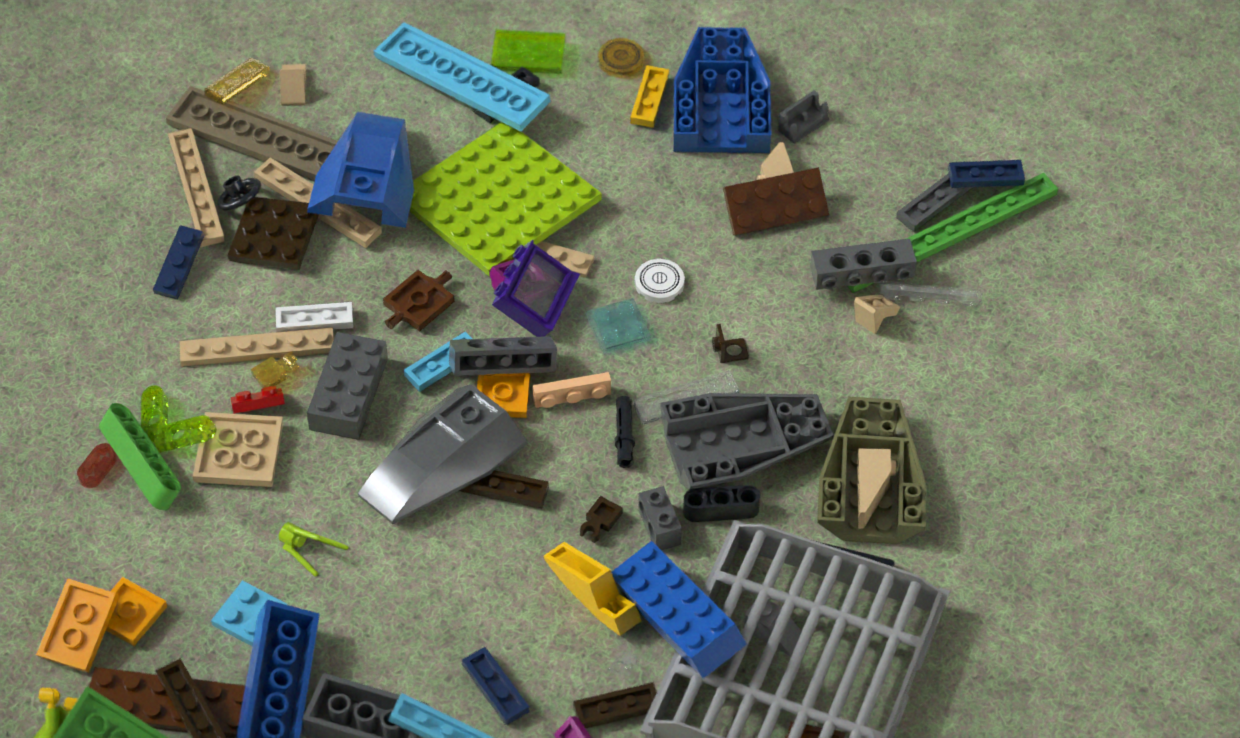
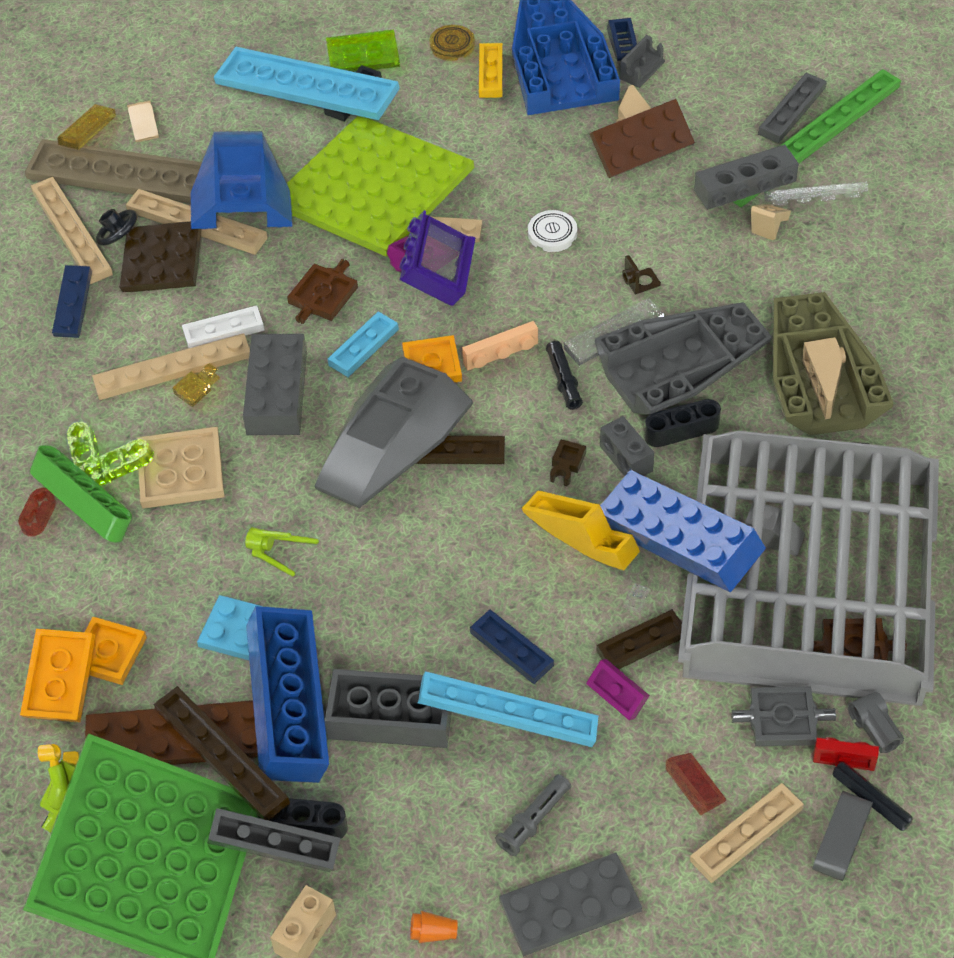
camera: 10 degrees left, 0 degrees up
(249, 401) = (177, 419): red plate -> none
(502, 355) = (423, 325): dark grey brick -> none
(618, 326) = (525, 279): clear light blue plate -> none
(792, 72) = (618, 26): none -> dark blue slope
(986, 173) = (832, 78): dark blue plate -> none

